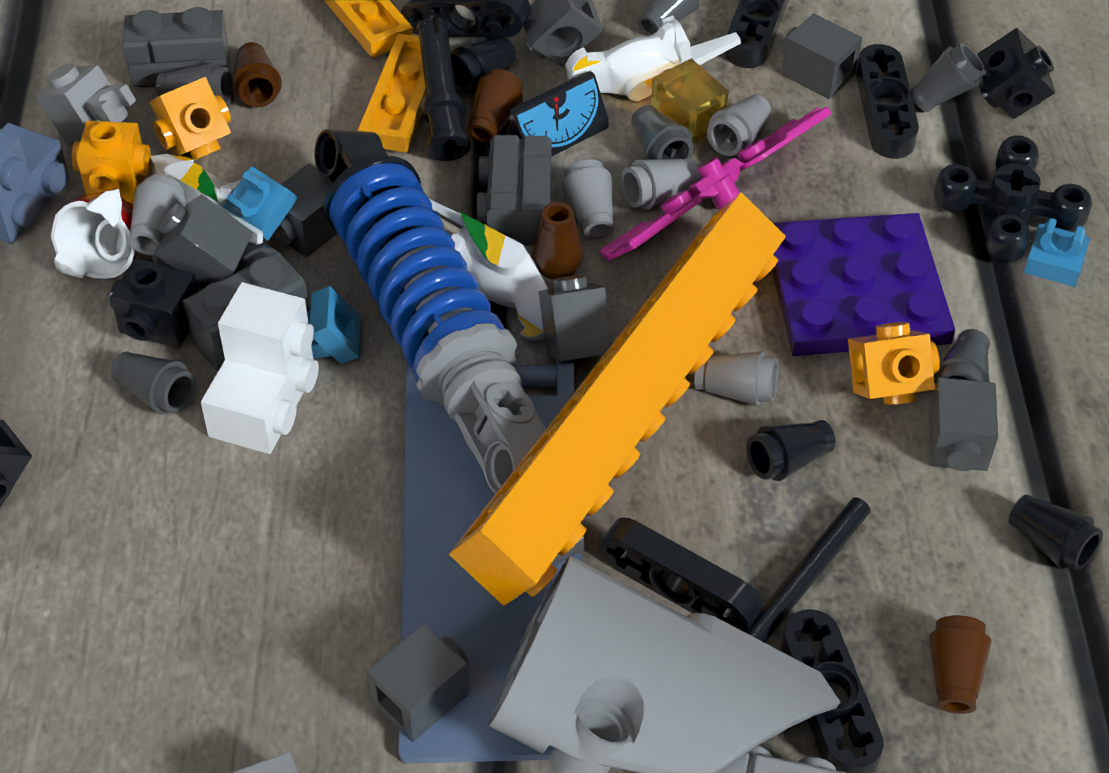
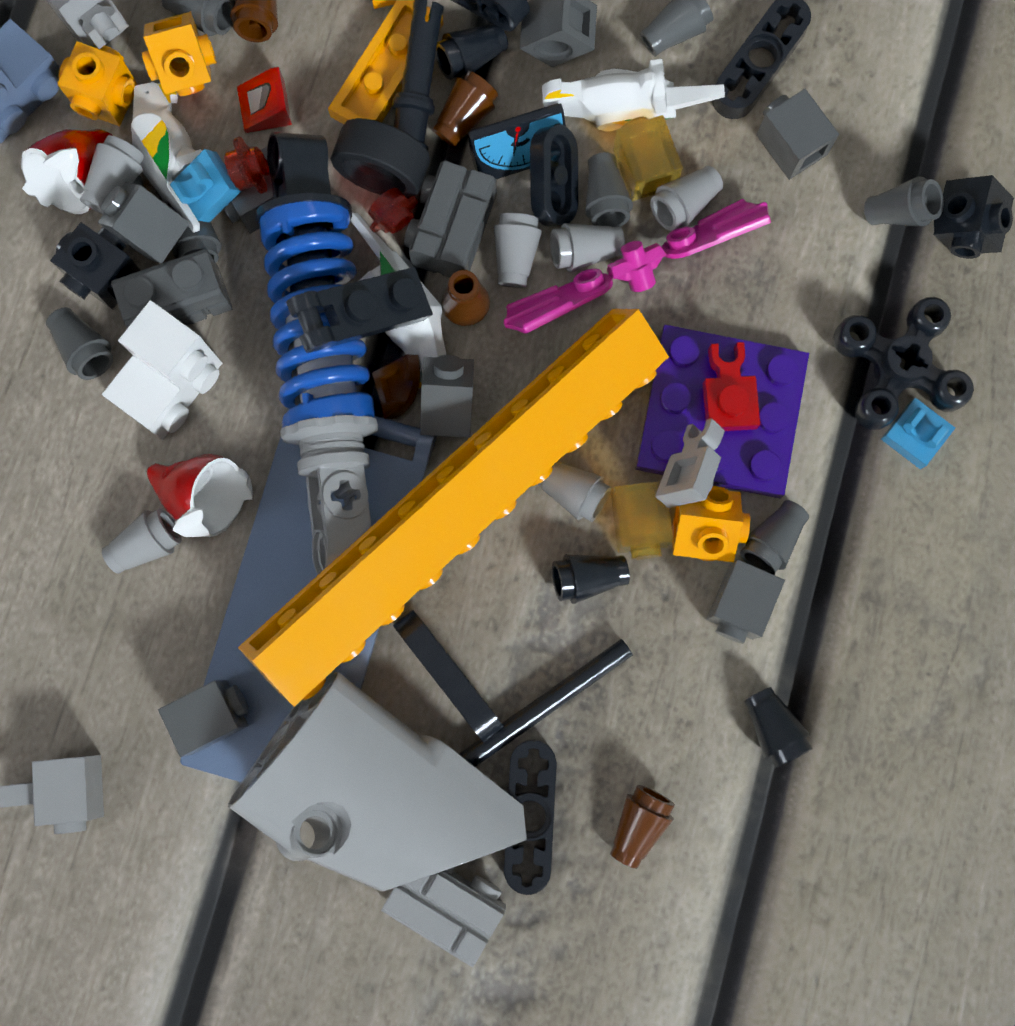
camera: 20 degrees right, 30 degrees up
(284, 540) = (142, 541): none -> light grey cone
(287, 144) = (264, 102): none -> red slope
(301, 170) = (247, 166): none -> clear red plate
(335, 326) = (242, 331): dark azure tile -> none
(337, 470) = (201, 493): none -> white hat
(437, 122) = (380, 157): none -> black tyre
(456, 188) = (391, 211): none -> clear red plate
(466, 237) = (360, 309): none -> black plate
(523, 324) = (398, 385): none -> reddish brown tile
(604, 129) = (554, 175): none -> black plate
(821, 380) = (640, 520): none -> clear yellow brick
(857, 310) = (692, 471): none -> light grey plate
(860, 255) = (731, 397): none -> red plate
(880, 115) = (855, 188): black beam -> none

